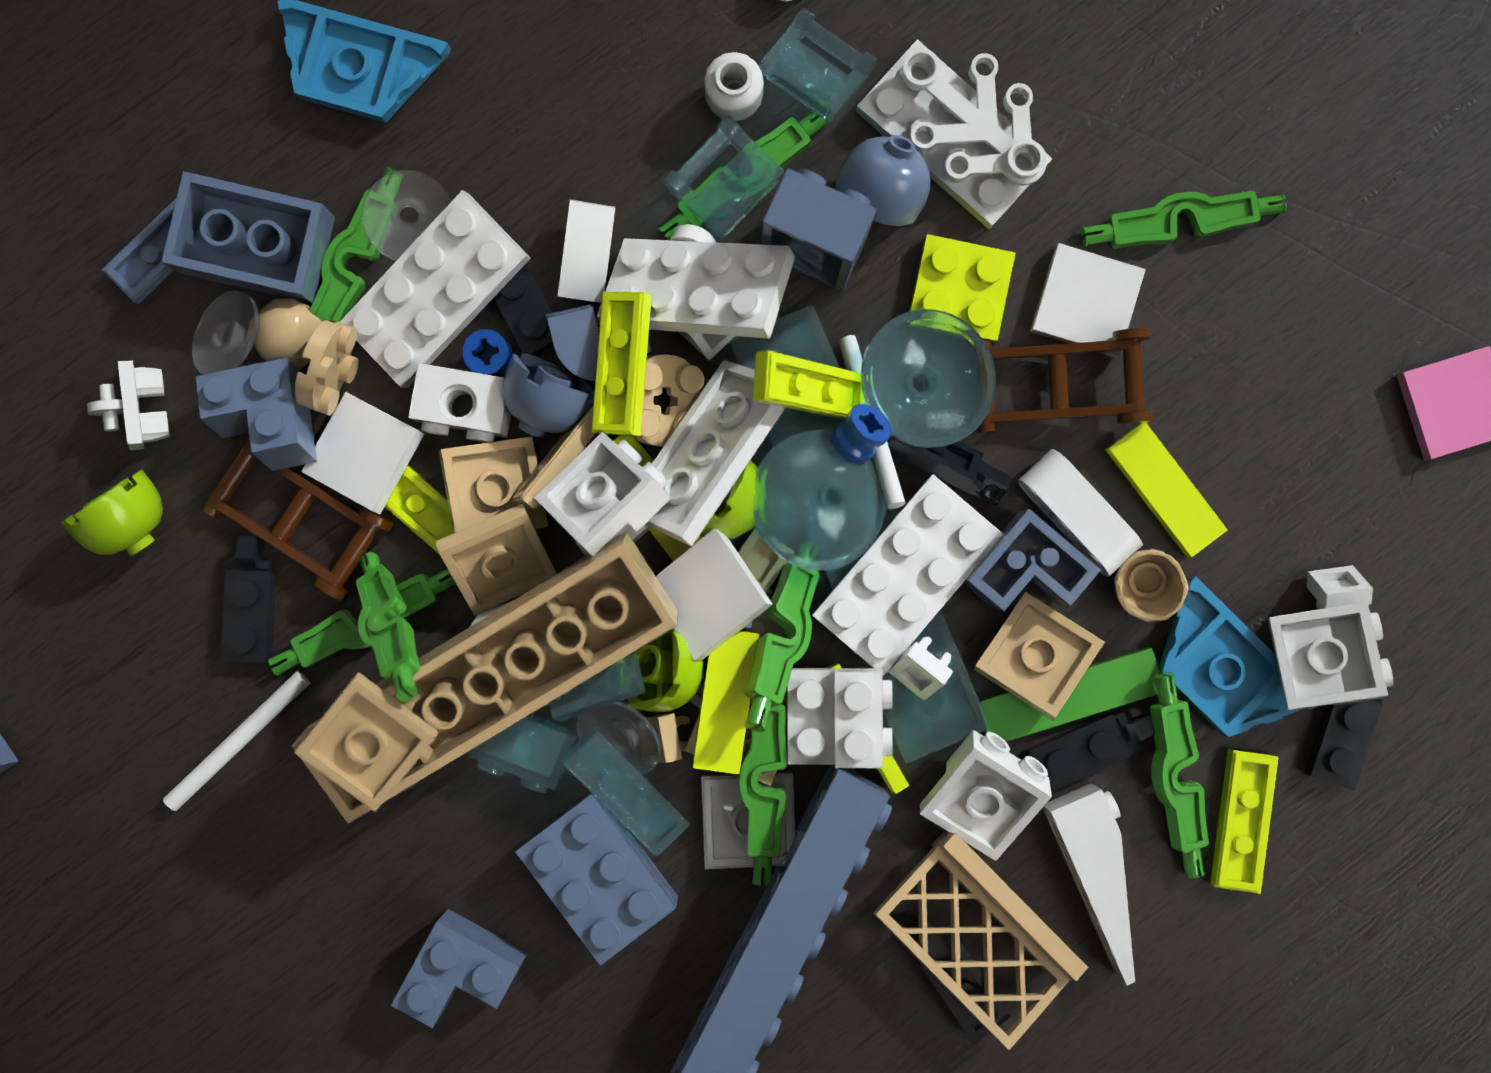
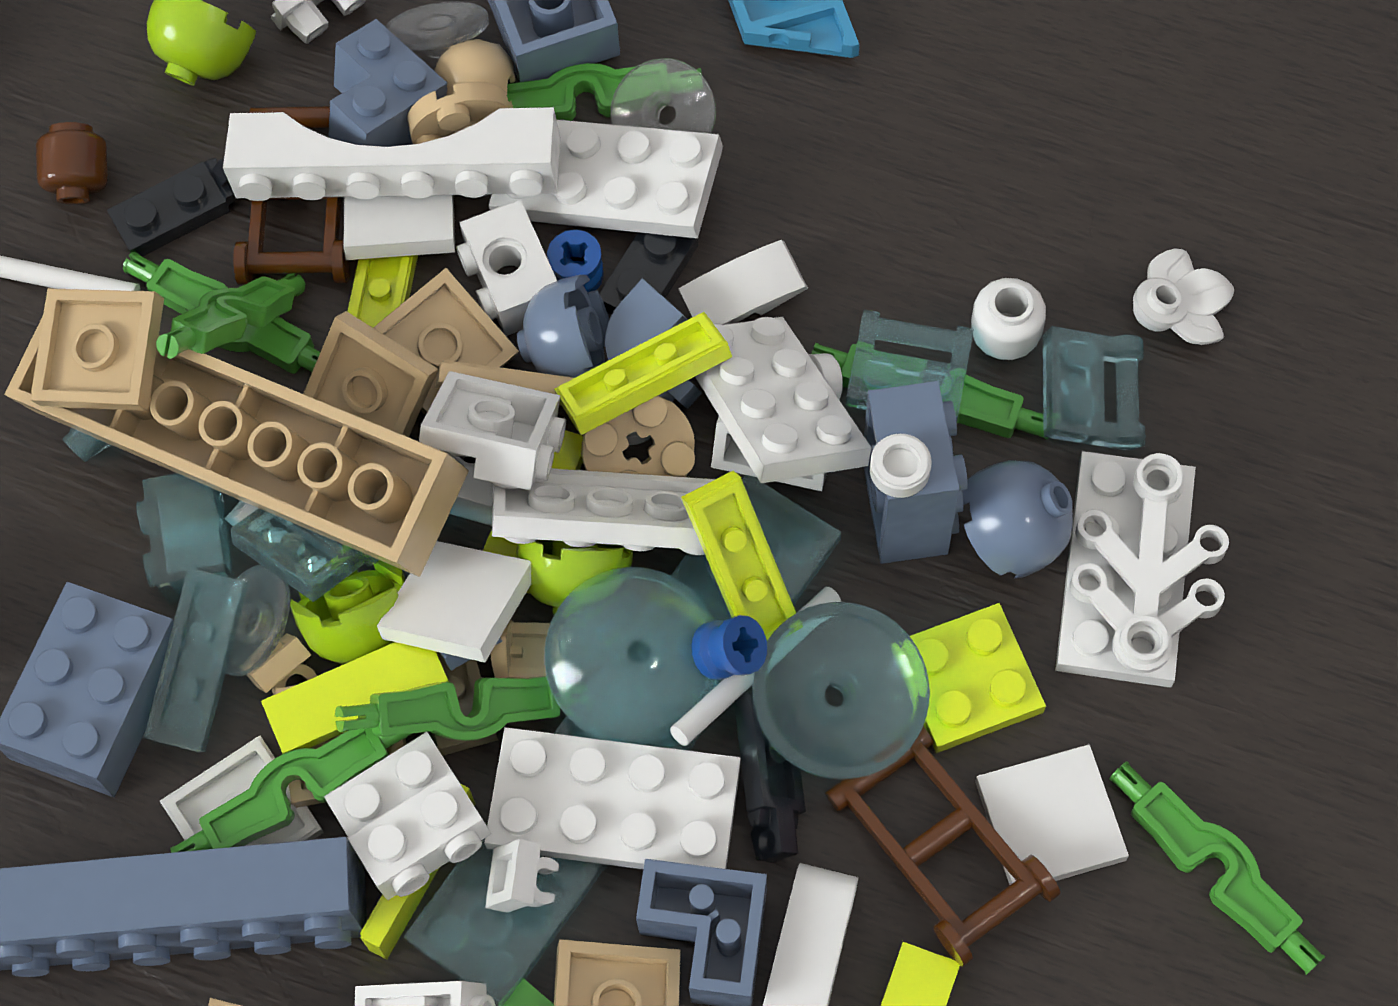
camera: 65 degrees right, 20 degrees down
(163, 665) = (71, 162): none -> reddish brown head
(376, 354) = (499, 155): none -> white arch
(837, 236) = (900, 465): none -> white tile

